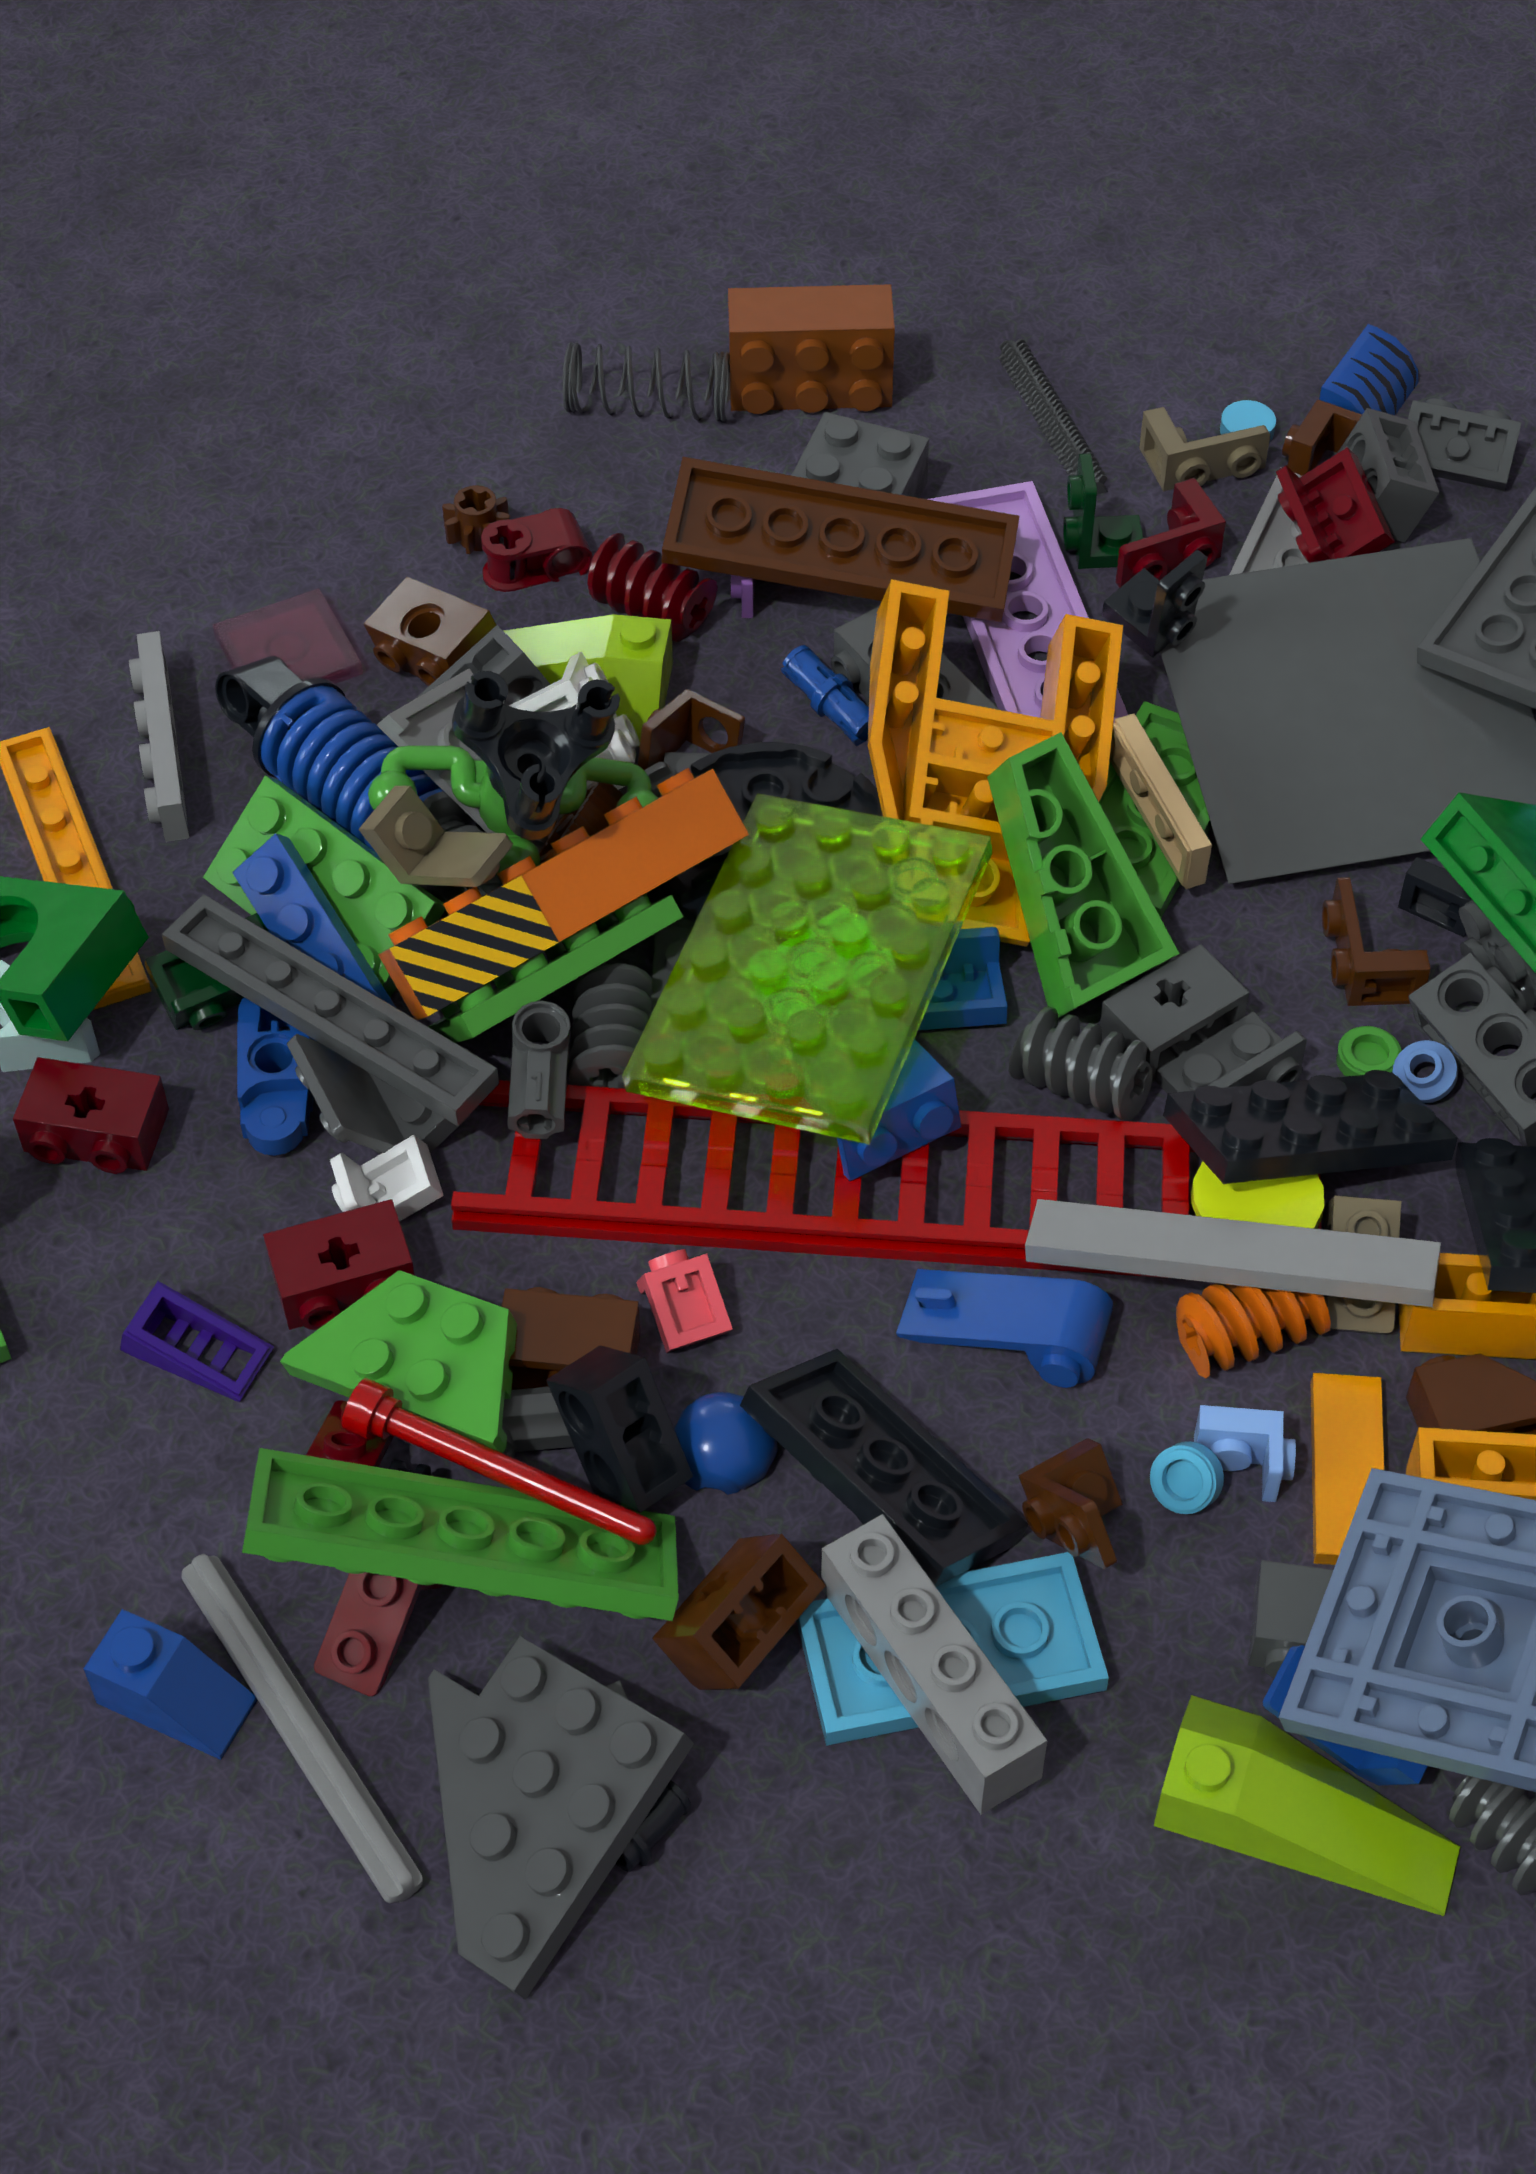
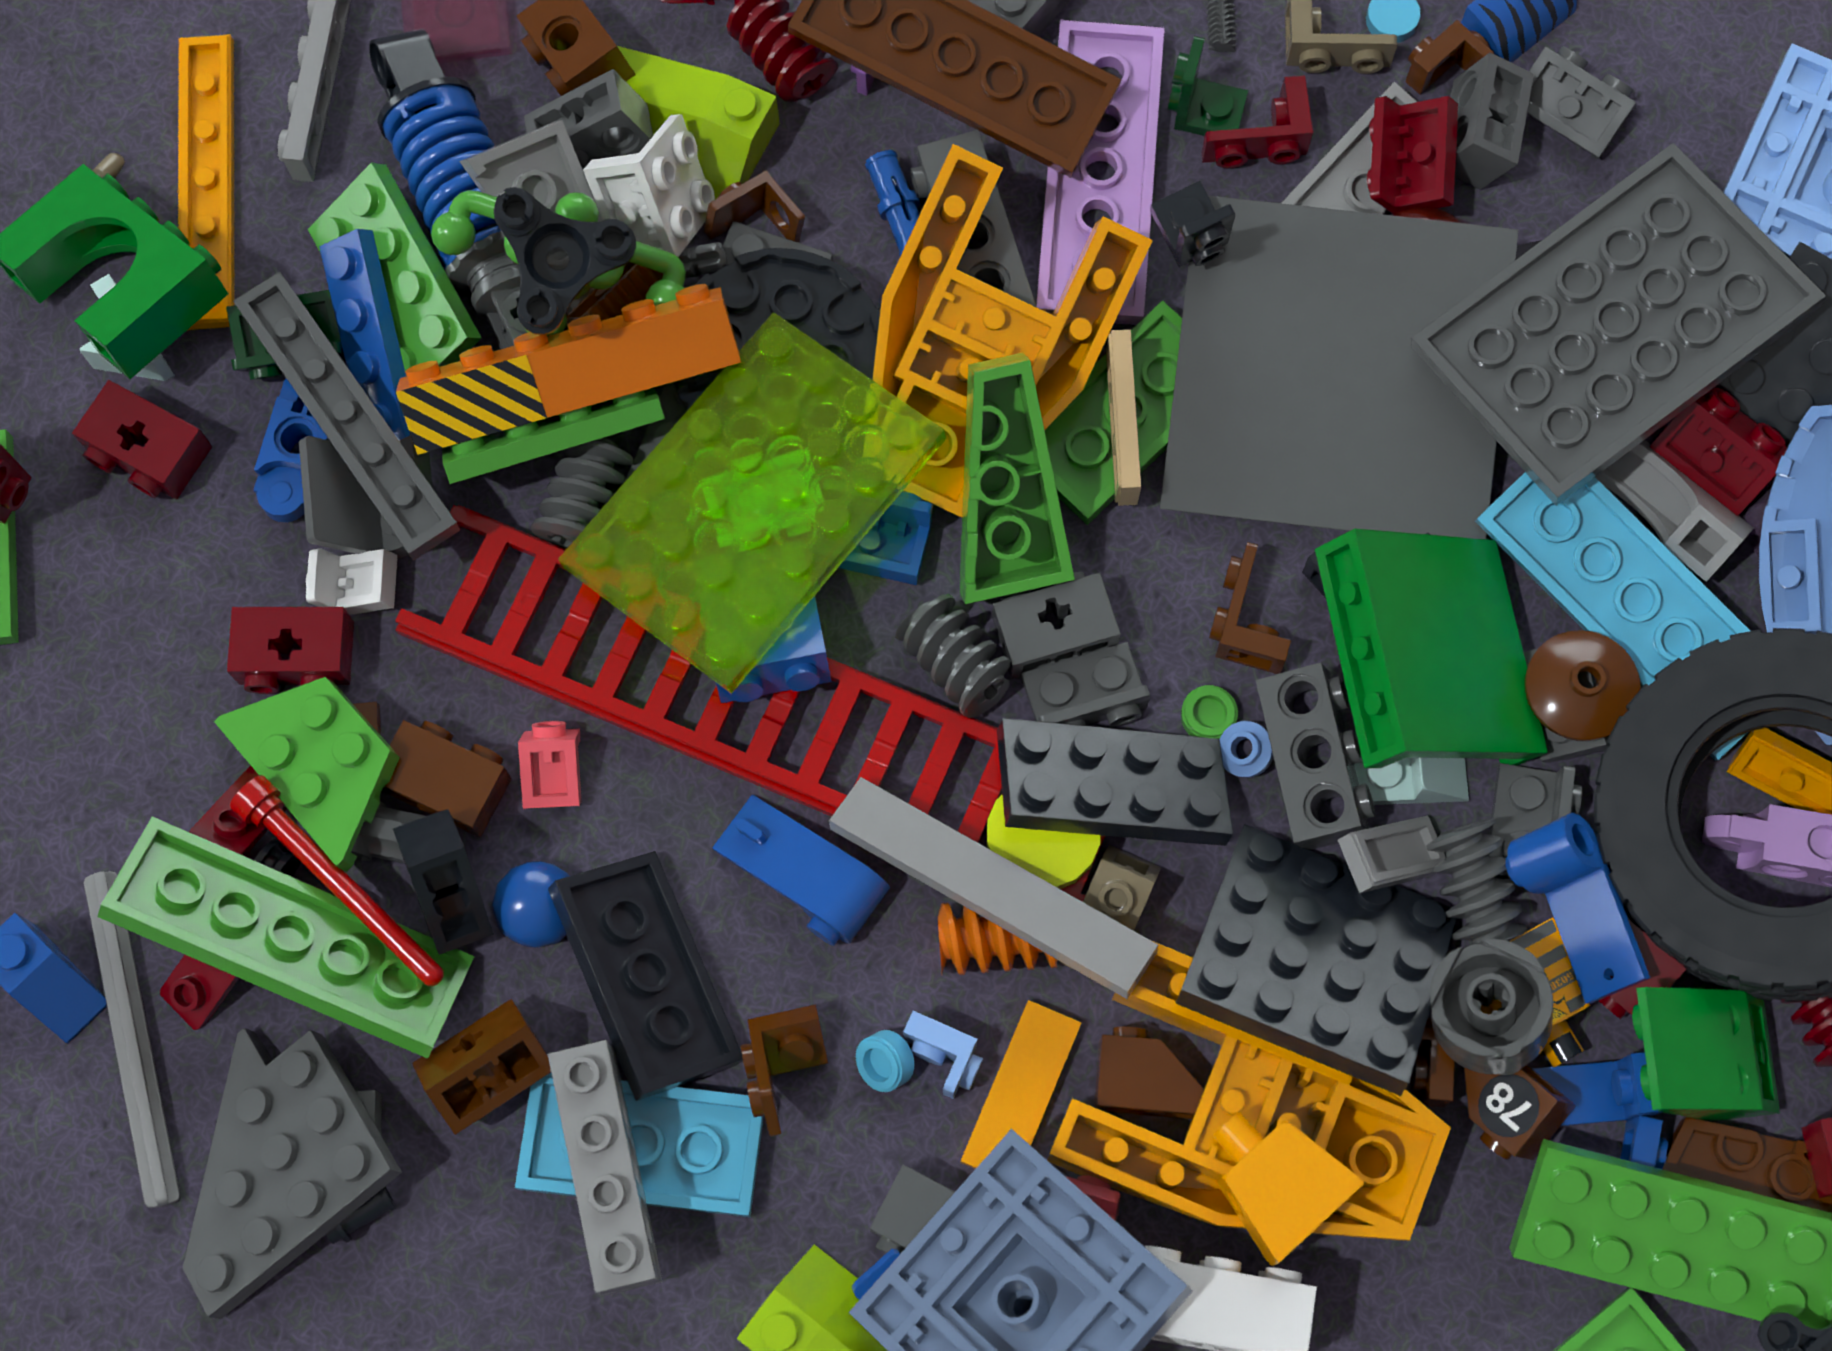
camera: 20 degrees right, 20 degrees up
(164, 1302) = (128, 646): dark purple slope -> none
(425, 854) = (466, 296): dark tan bracket -> none
(539, 1070) = (499, 529): dark grey piece -> none

